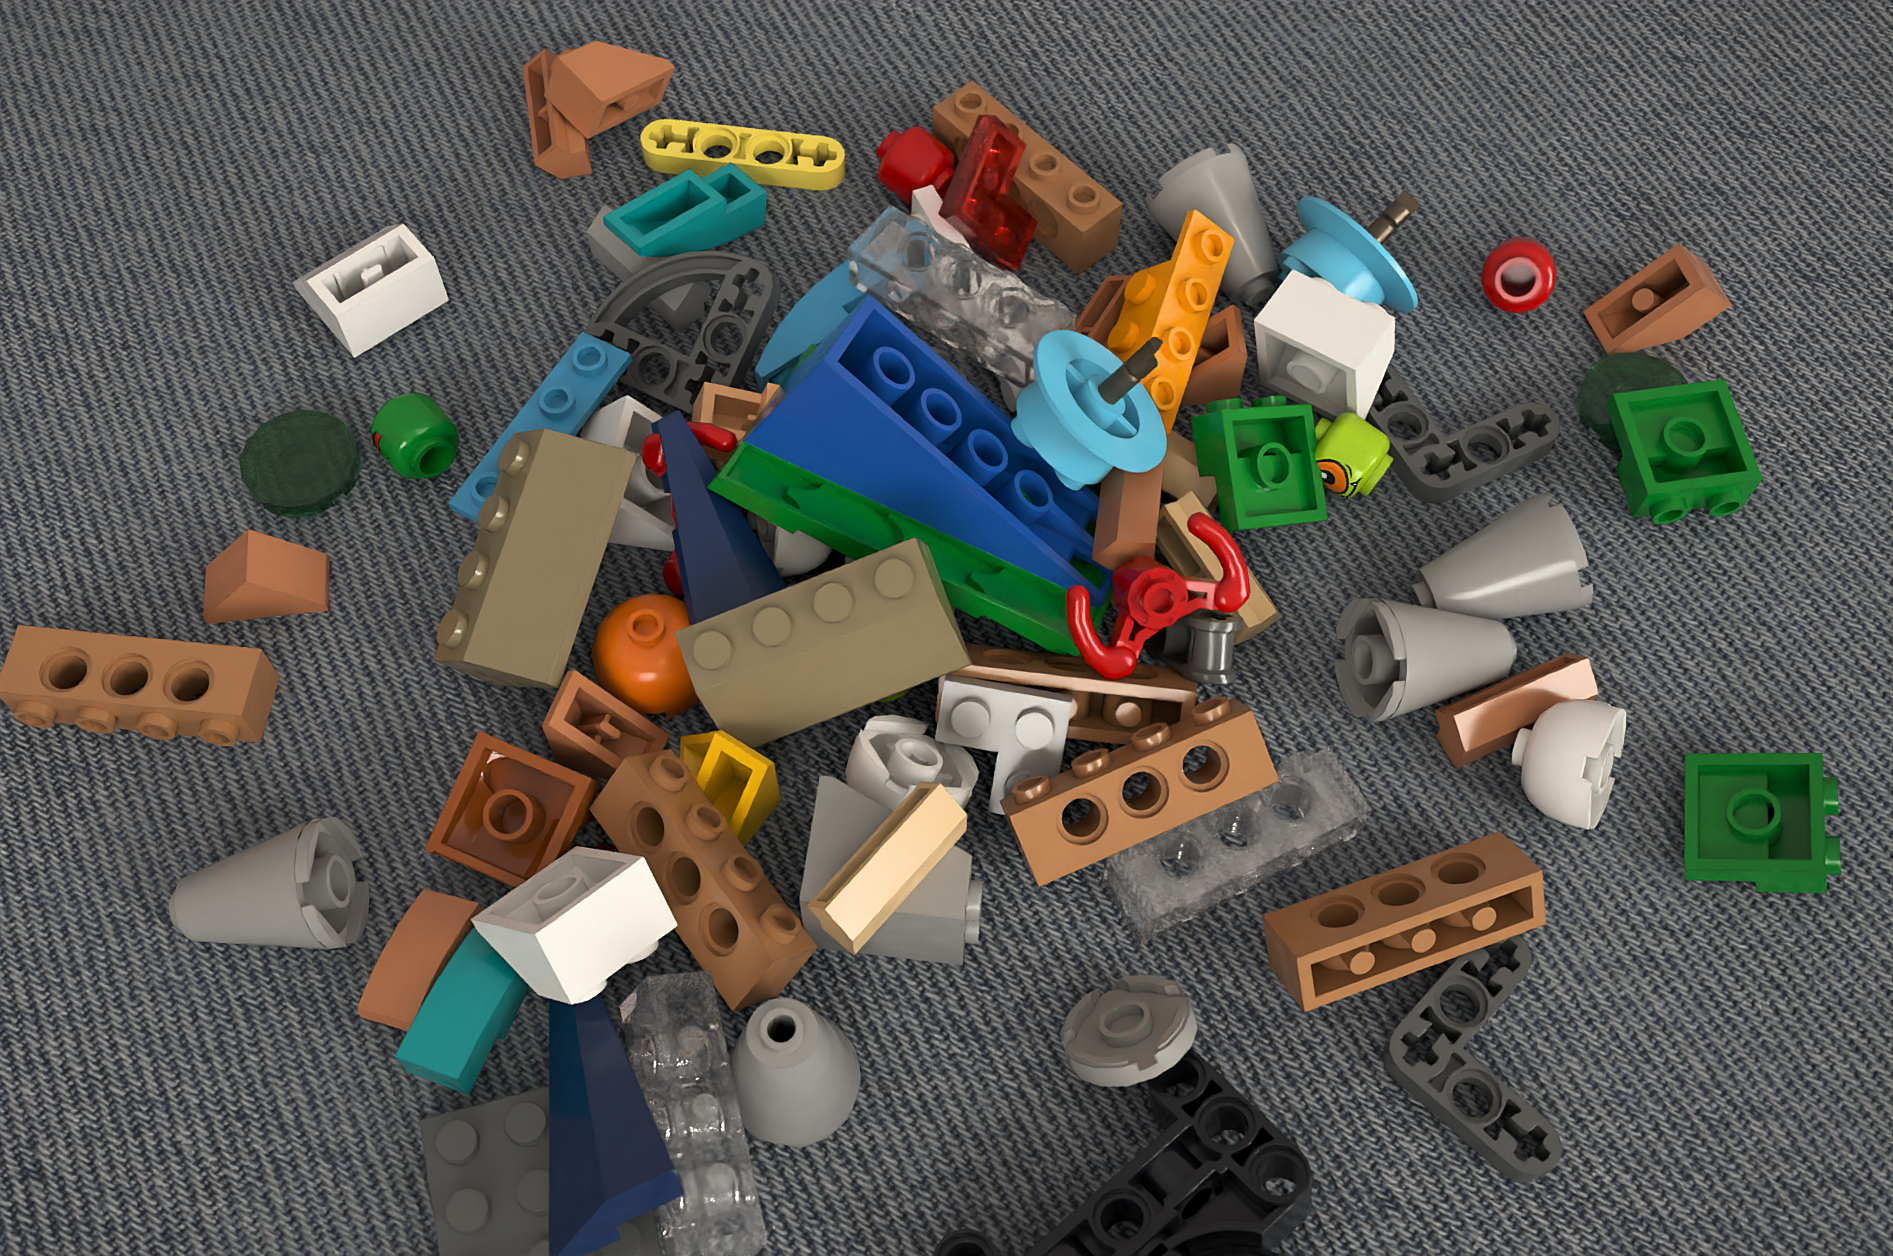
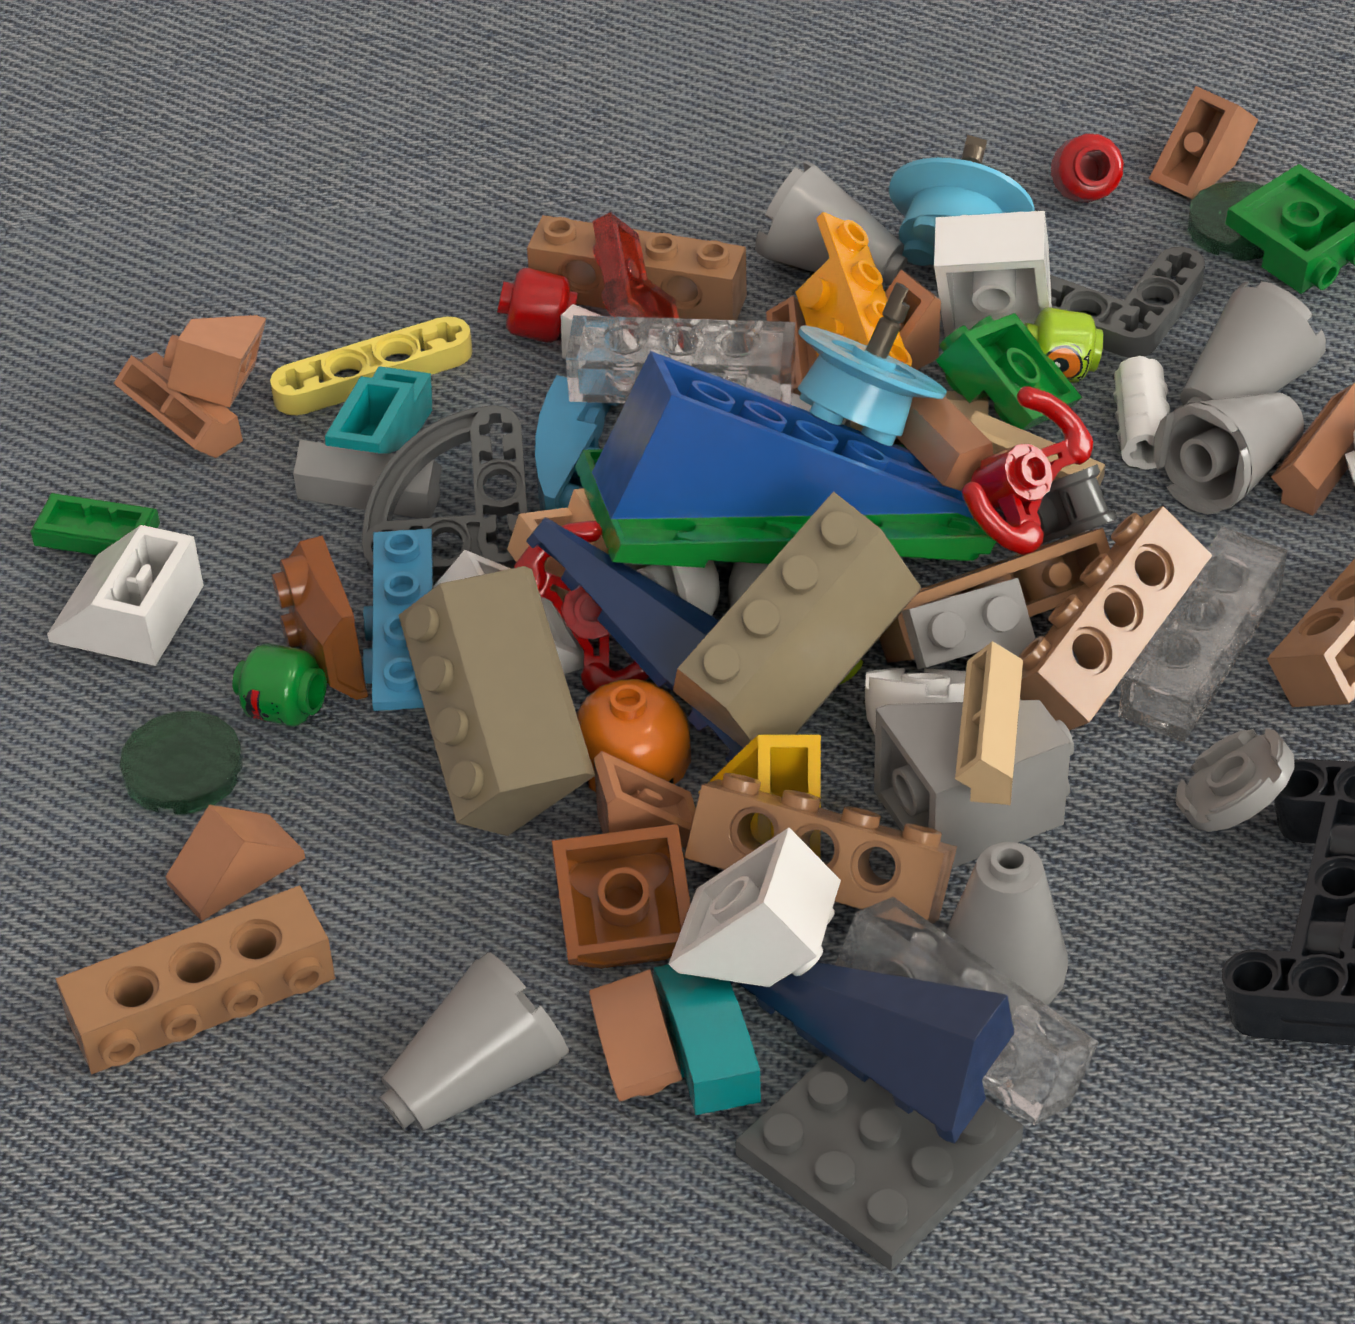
camera: 30 degrees left, 15 degrees down
(407, 197) = (87, 523): none -> green plate
(485, 386) = (320, 615): none -> dark orange slope
(1369, 563) = (1140, 407): none -> white axle

